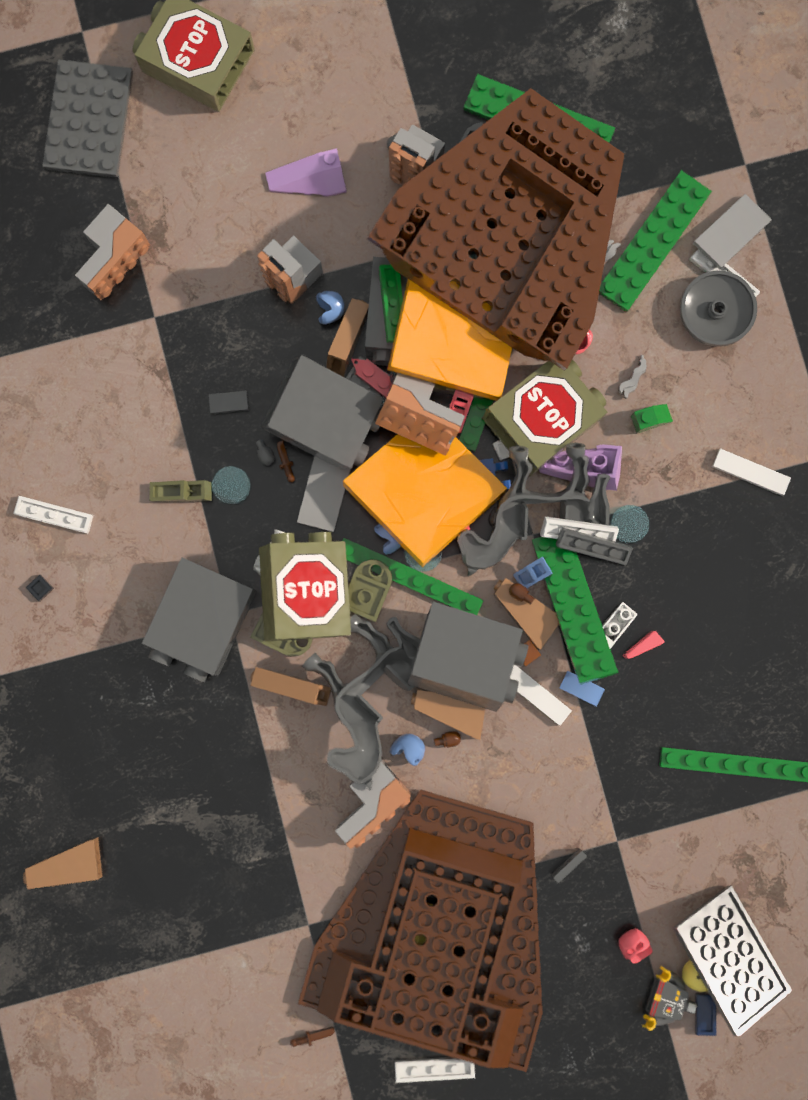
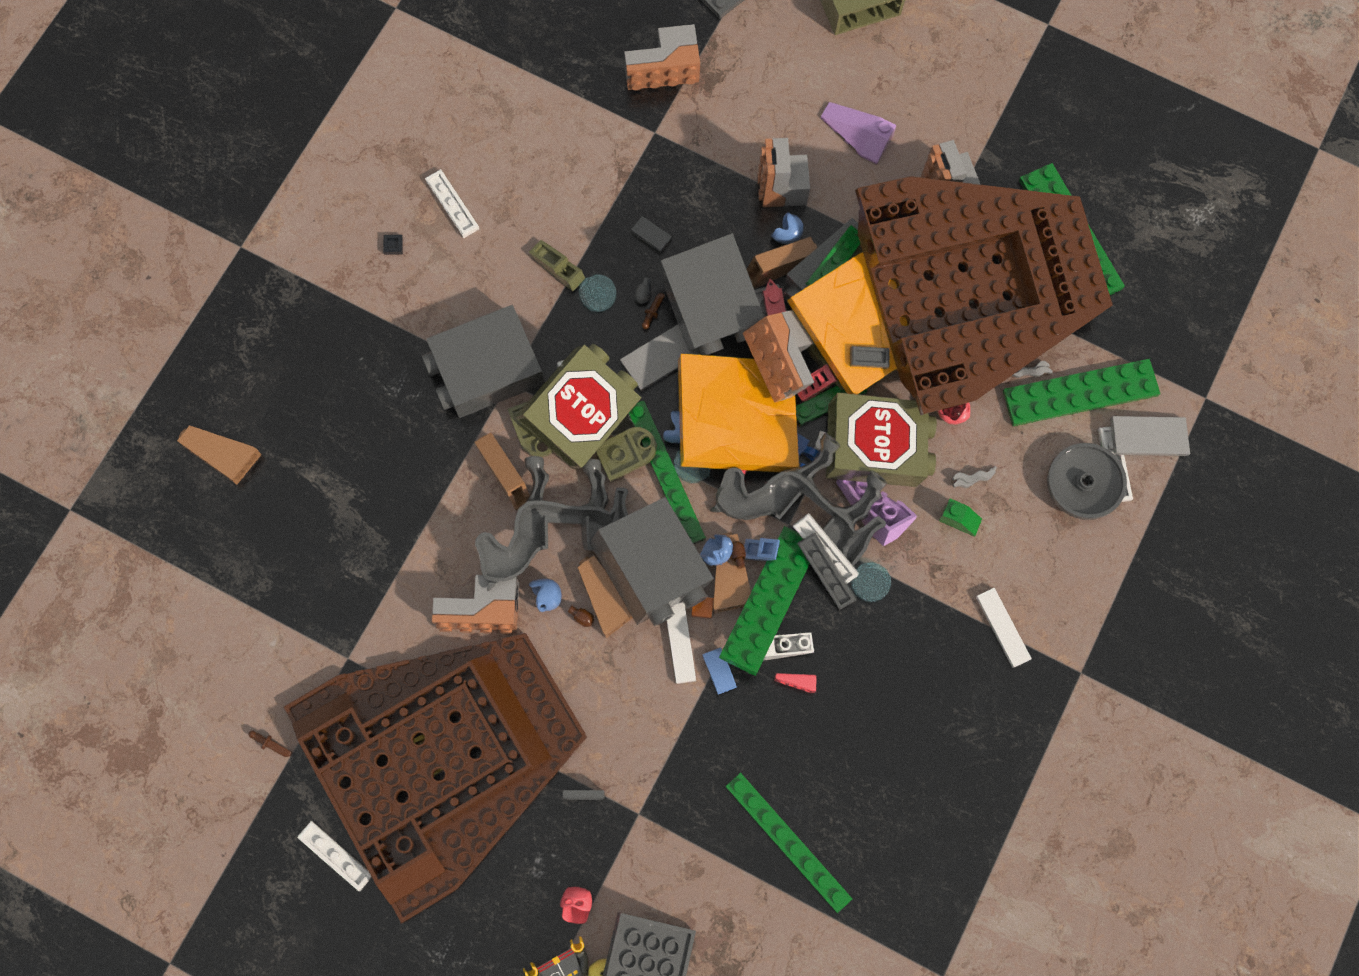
camera: 40 degrees right, 10 degrees down
(486, 358) = (869, 357): none -> dark grey tile
(505, 606) = (717, 550): none -> medium blue hair

